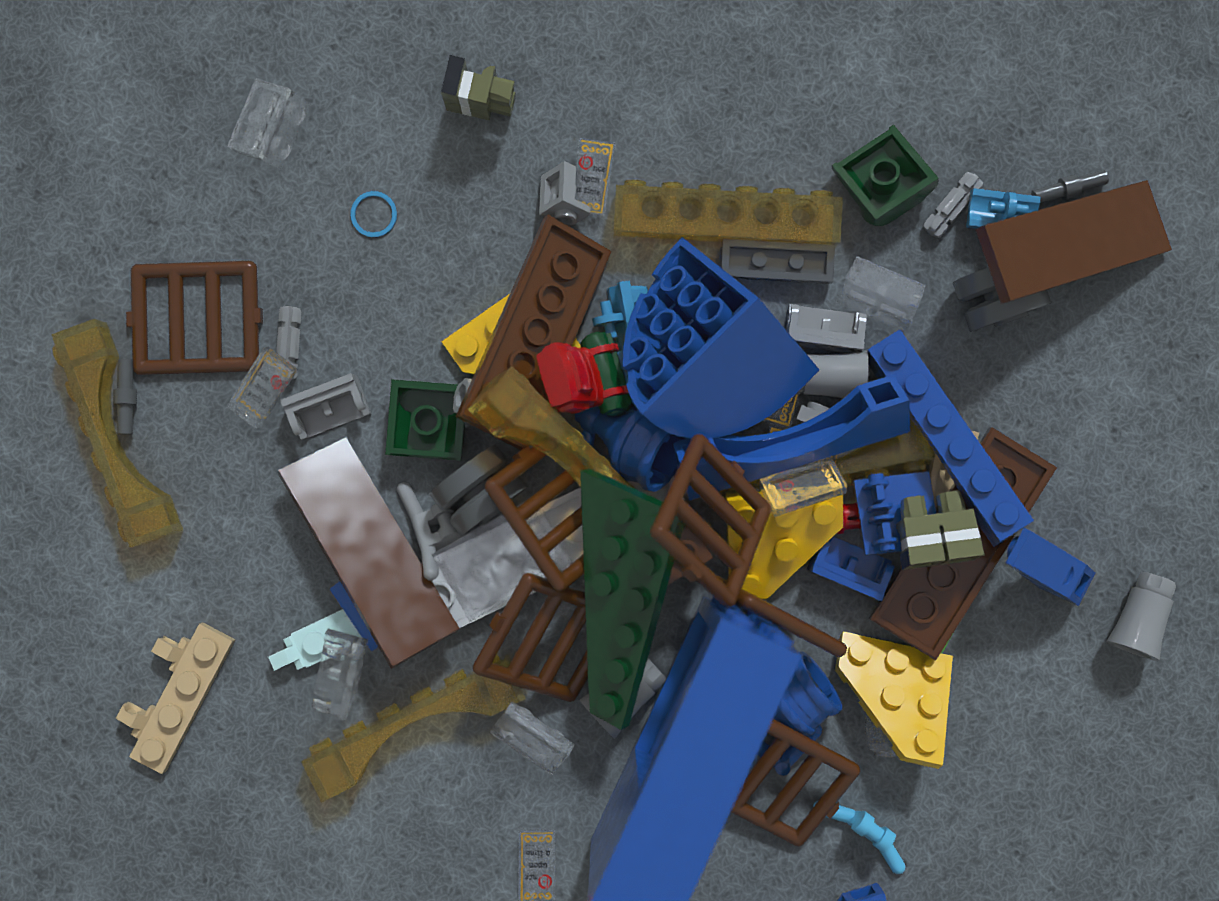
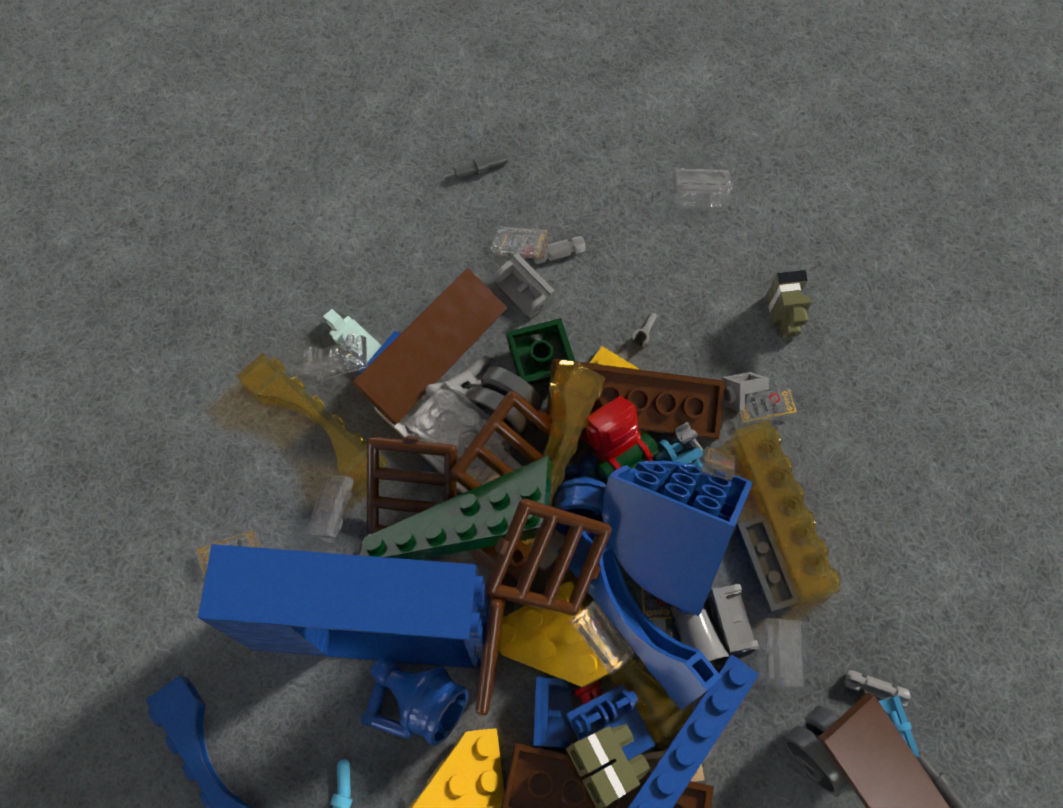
camera: 70 degrees right, 20 degrees down
(90, 364) = (409, 197): clear yellow arch -> none
(166, 724) = (263, 263): tan hinge -> none
(175, 273) = (576, 167): reddish brown bar -> none
(393, 219) = (674, 261): dark azure piece -> none
(437, 277) = (644, 331): none -> light grey hand
(598, 289) = (685, 434): none -> light grey hand
(646, 267) = (718, 463): none -> clear tile
(827, 804) = (388, 736): reddish brown bar -> none
(886, 177) = (871, 623): dark green slope -> none

